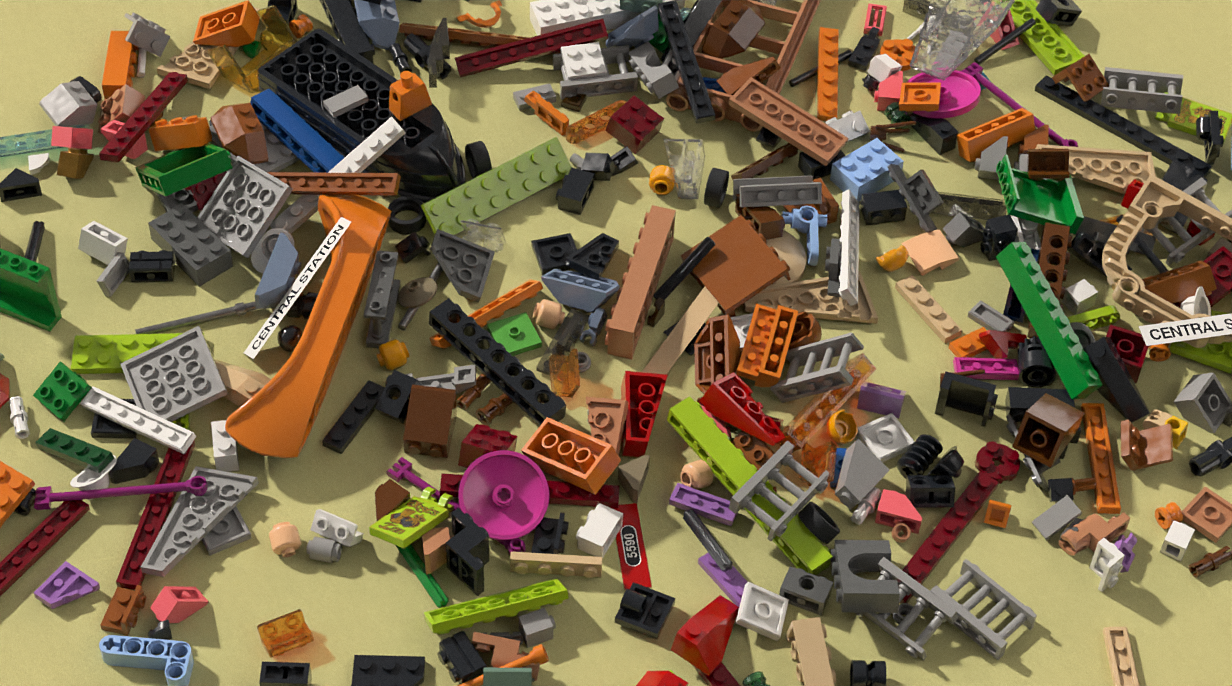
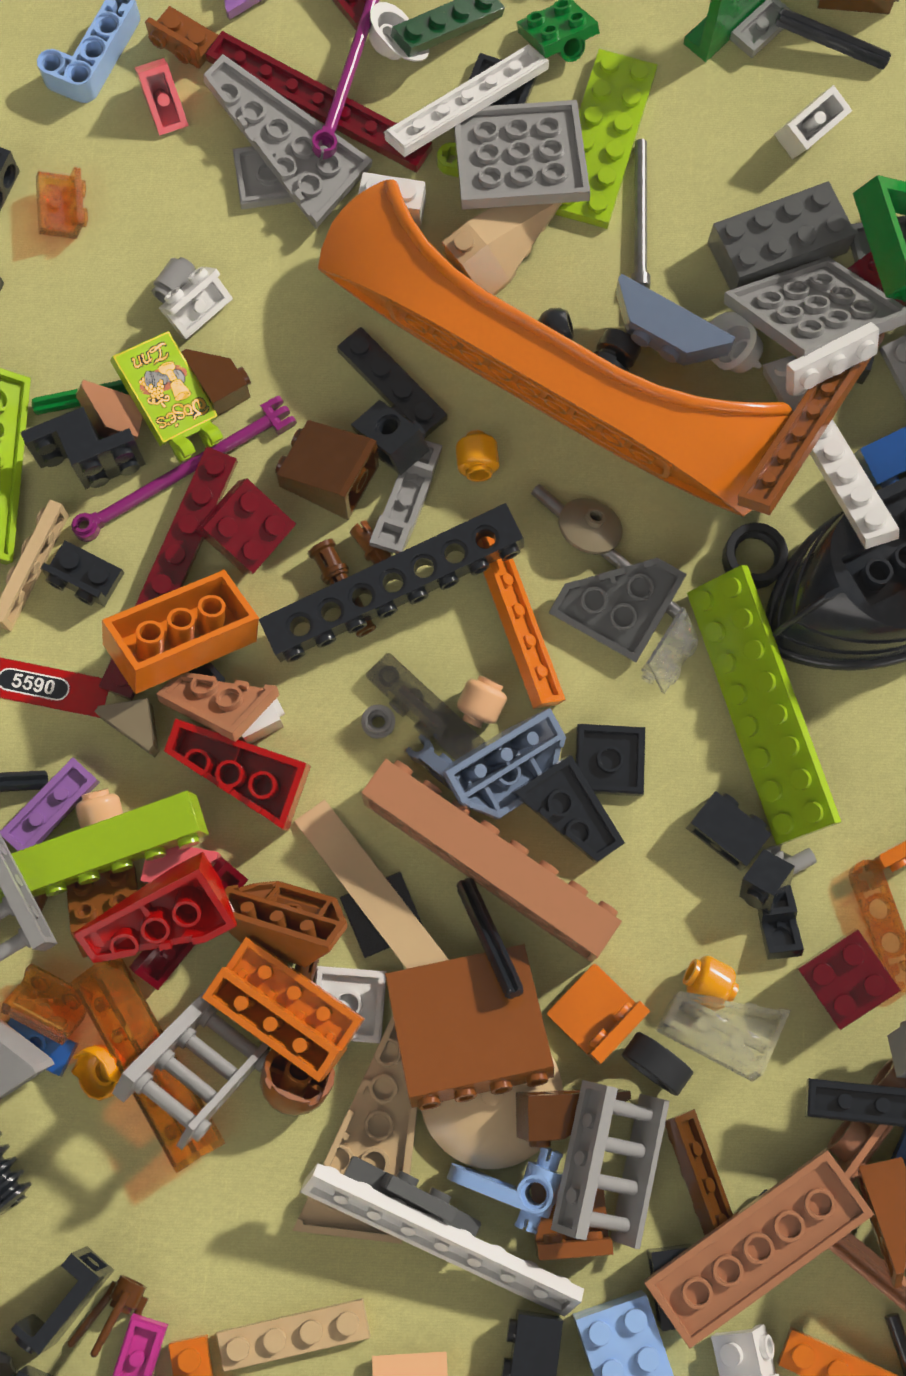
camera: 110 degrees right, 25 degrees up
(114, 274) = (754, 130): light grey tile -> none
(134, 462) = (408, 89): black slope -> none
(152, 266) = (755, 178): black brick -> none
(163, 631) = (127, 71): black tile -> none
(285, 539) = (210, 238): light nougat head -> none
(297, 287) = (621, 338): white sticker -> none
(298, 188) = (832, 359): none -> white plate
(382, 299) = (573, 458): dark grey fence -> none
(413, 246) = (685, 546): black bracket -> none
(477, 158) = (831, 690): black tyre -> none
(504, 494) = (148, 517): dark pink dish -> none
(515, 334) = (465, 643): bright green plate -> none
(564, 374) = (355, 683): clear orange panel -> none
(599, 530) = (60, 641): white brick -> none
(658, 313) = (431, 869): dark brown tile -> none
(702, 218) = (597, 1014): none -> orange bracket
(880, 399) = (135, 1170): medium lavender slope -> none
(885, 437) = (65, 1139): white tile -> none
(893, 259) = (413, 1316): light orange hair -> none

